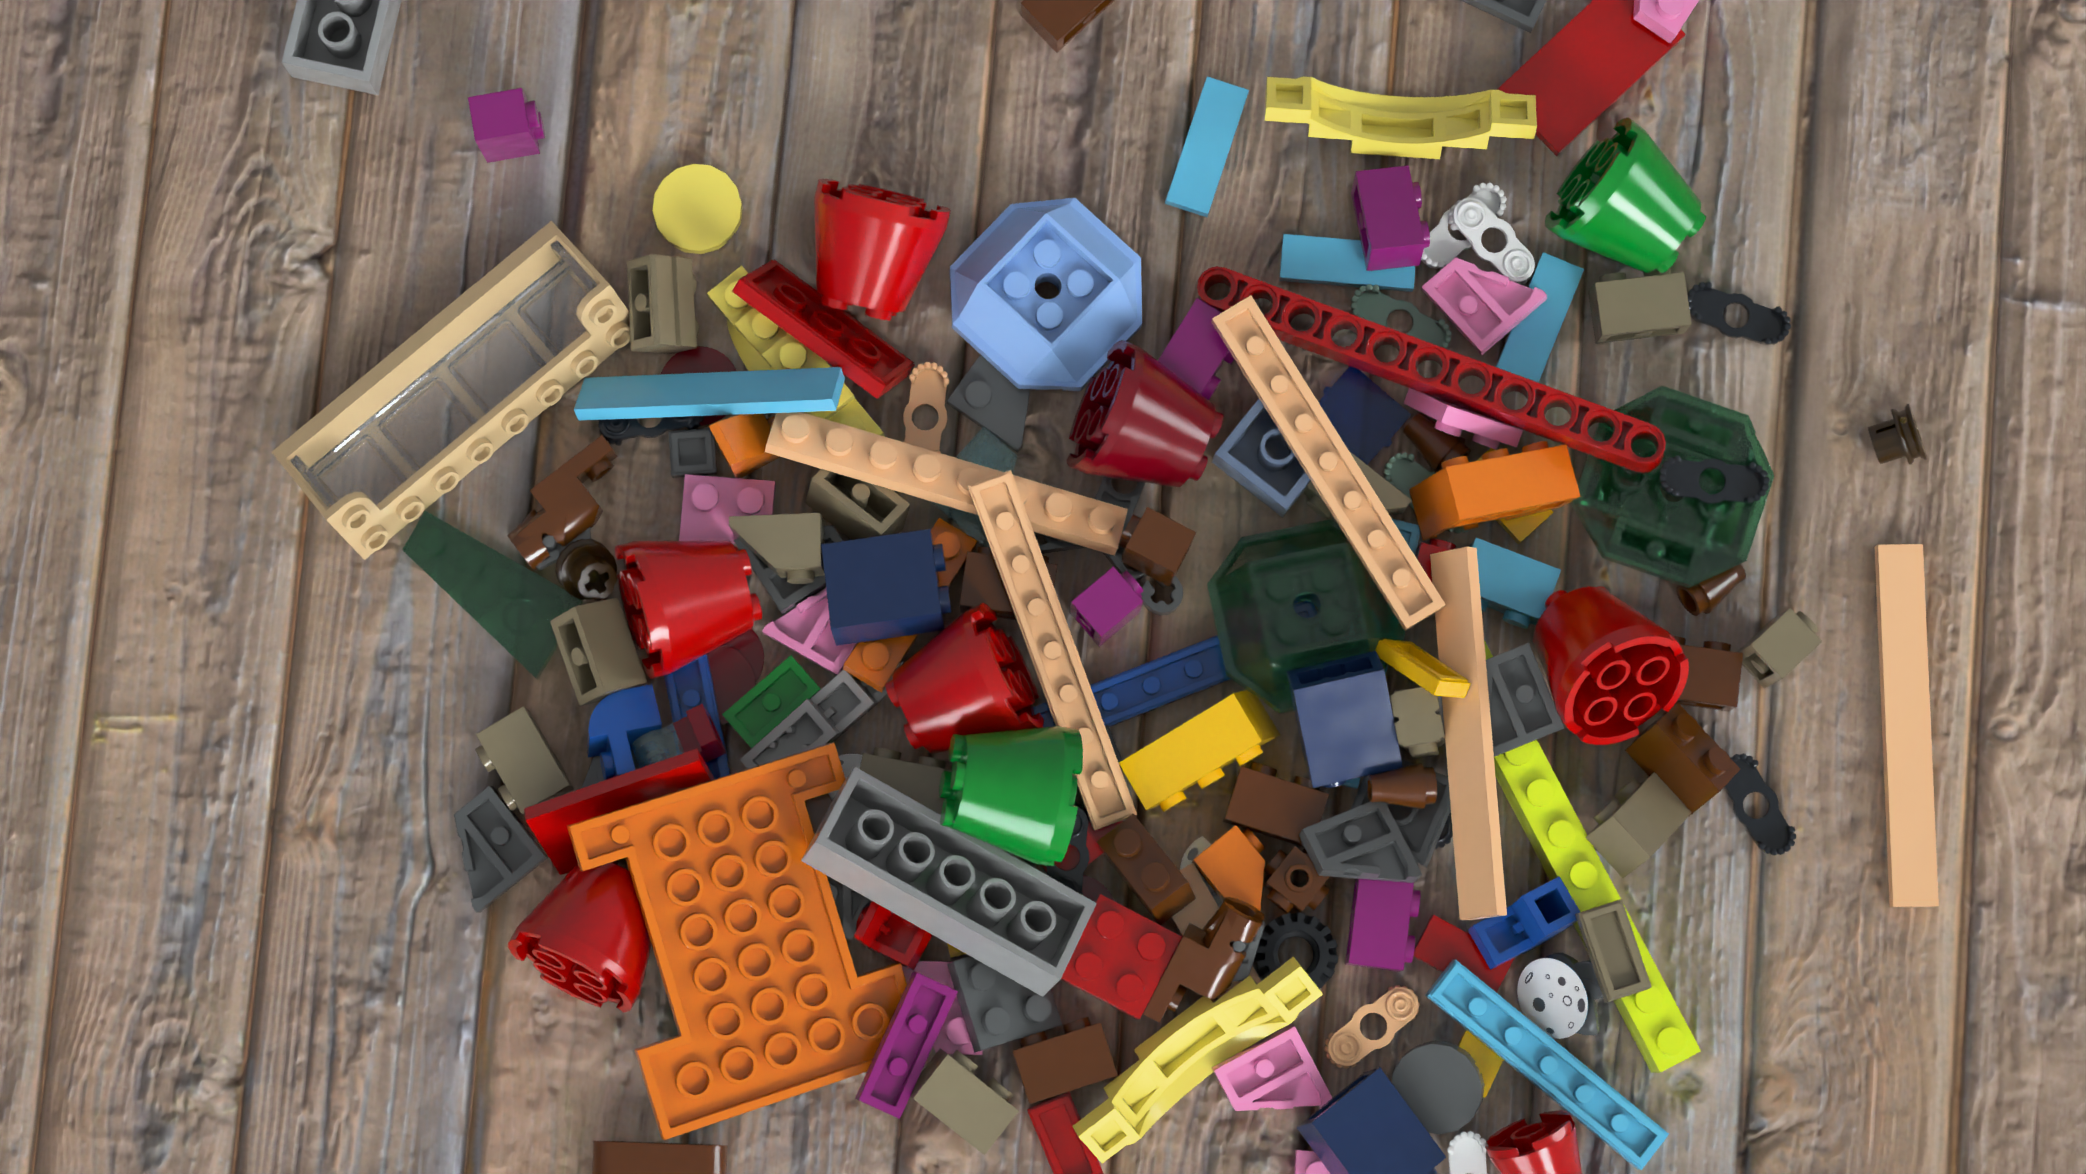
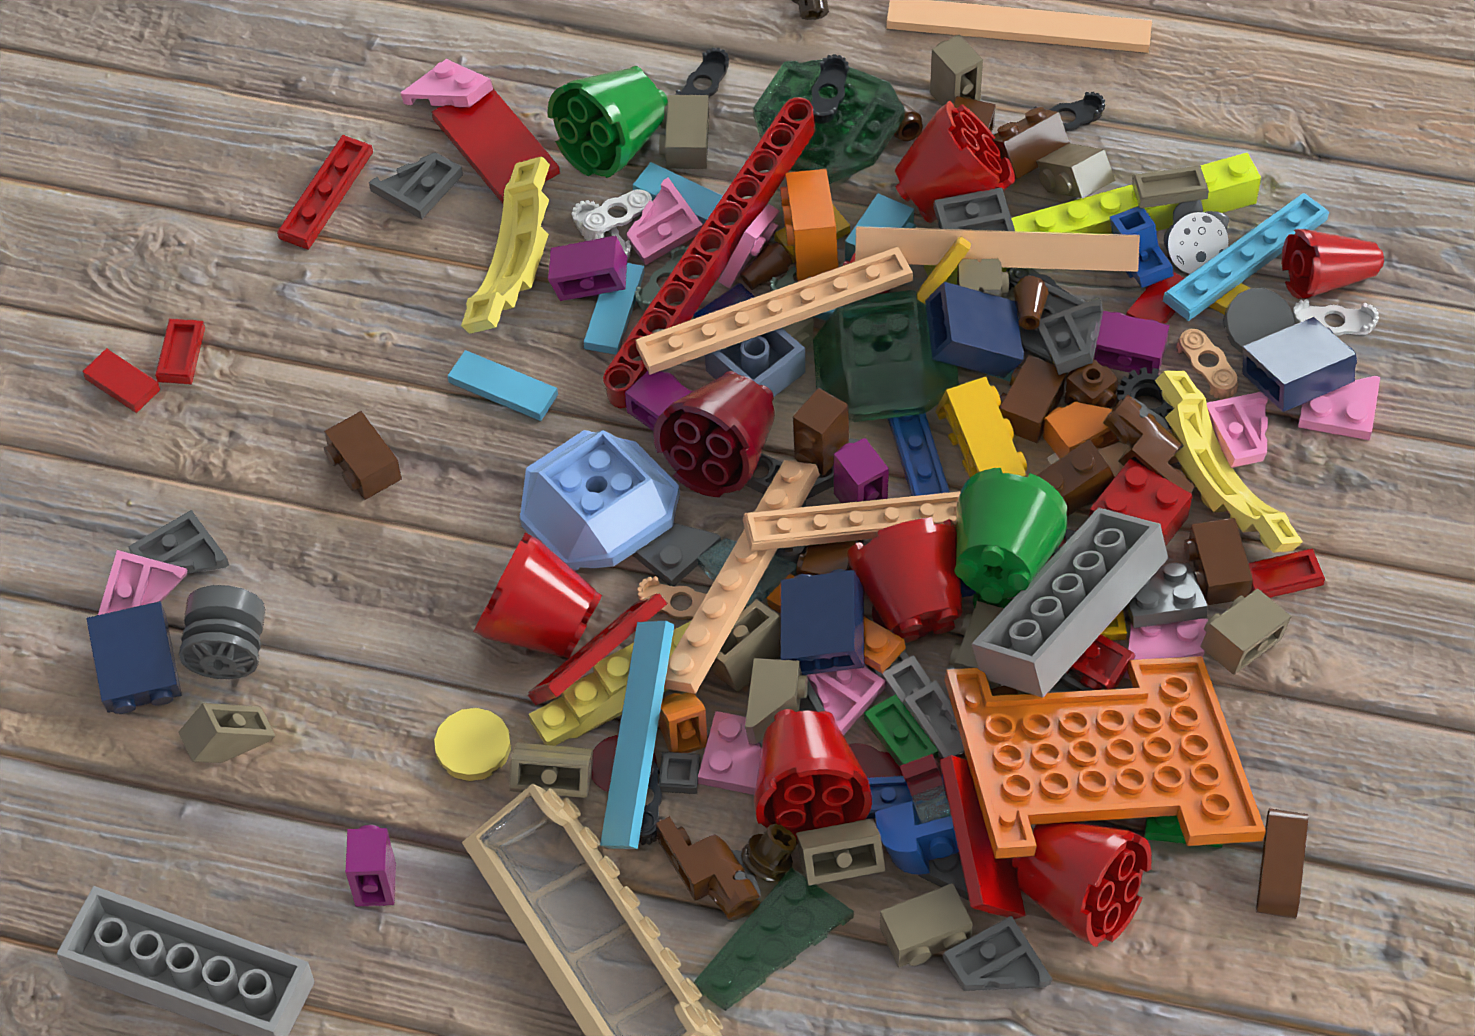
camera: 75 degrees left, 25 degrees down
(906, 1044) = (1198, 659): magenta plate -> none

